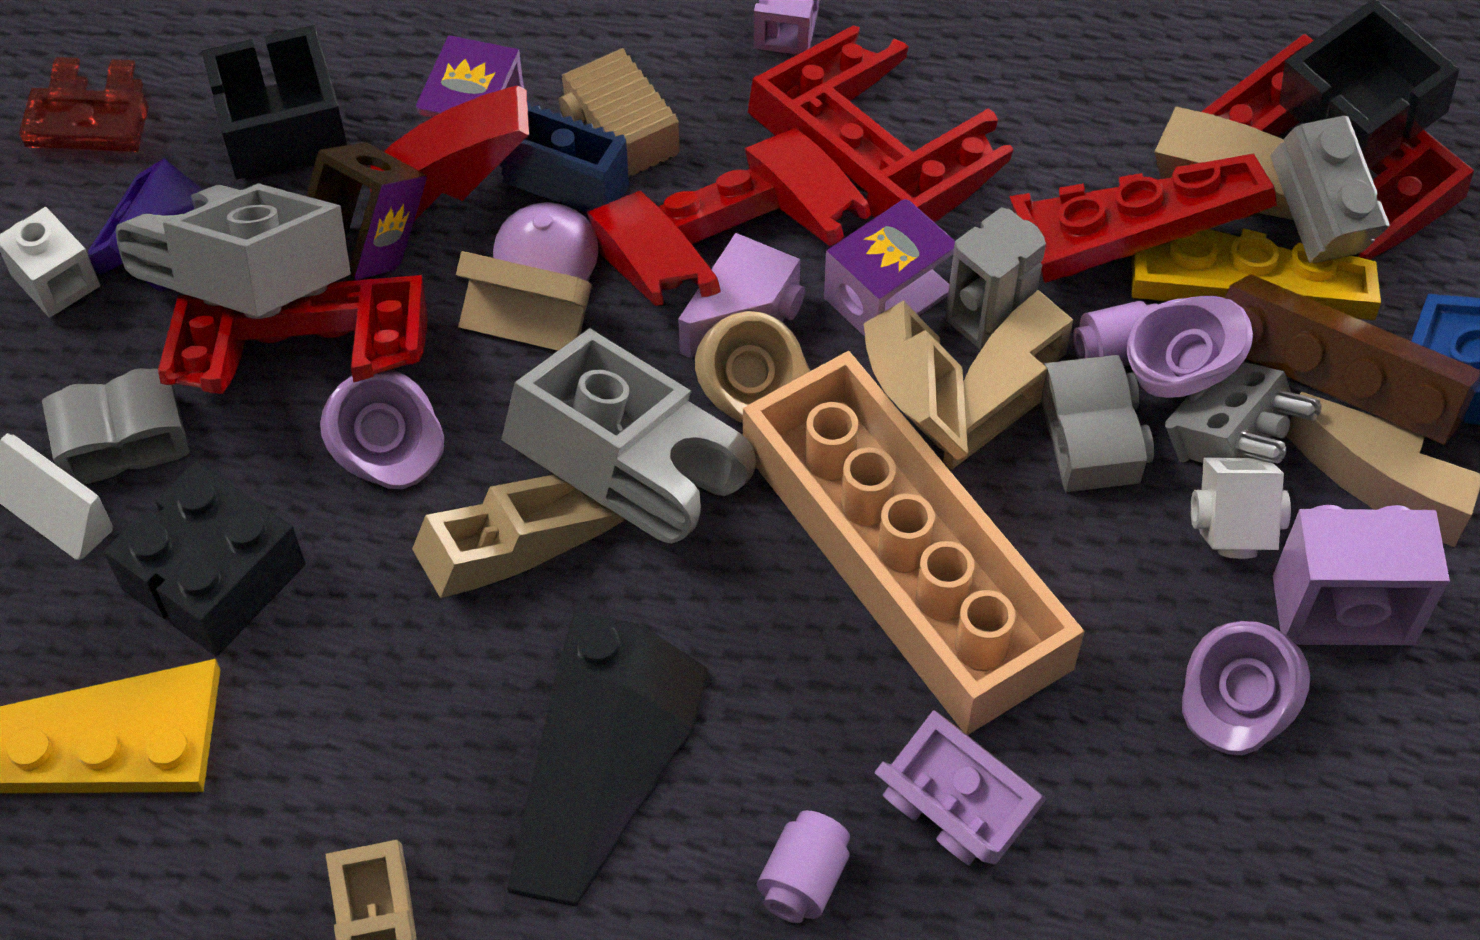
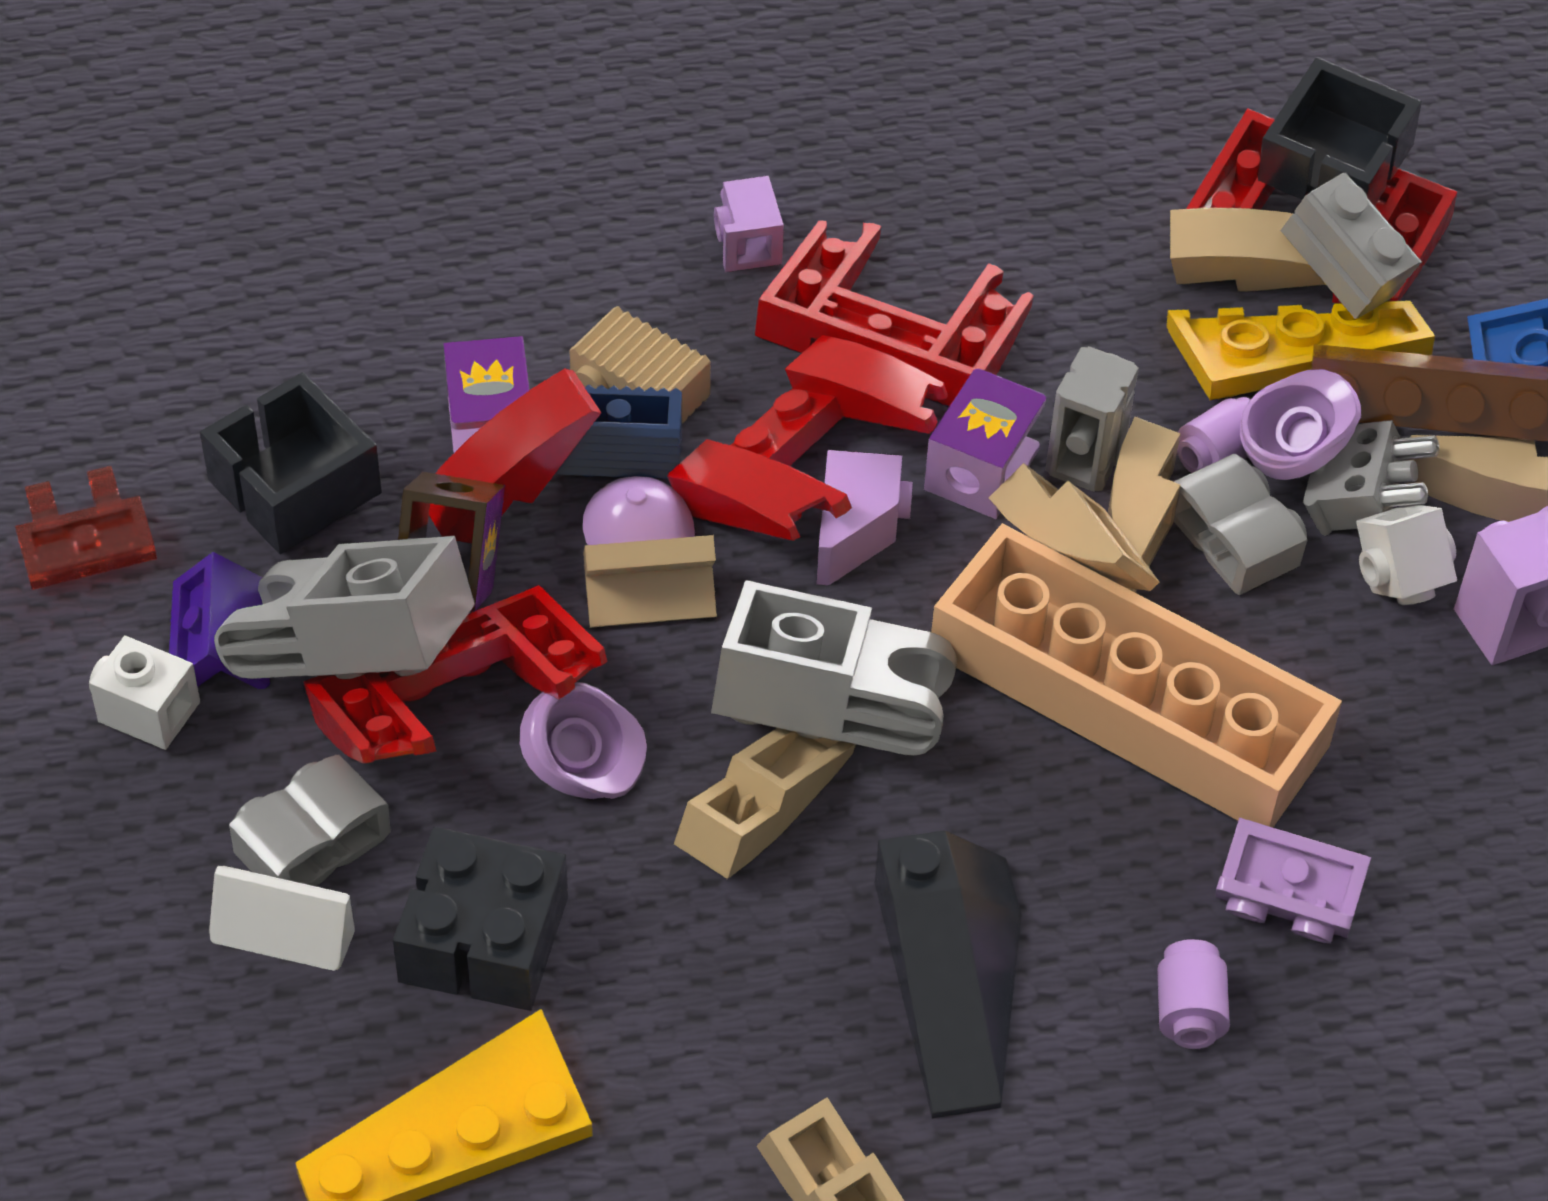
camera: 25 degrees left, 5 degrees down
(747, 360) = (902, 570): tan hat -> none
(1143, 212) = (1194, 315): red wing -> none
(1244, 686) = (1486, 708): lavender hat -> none

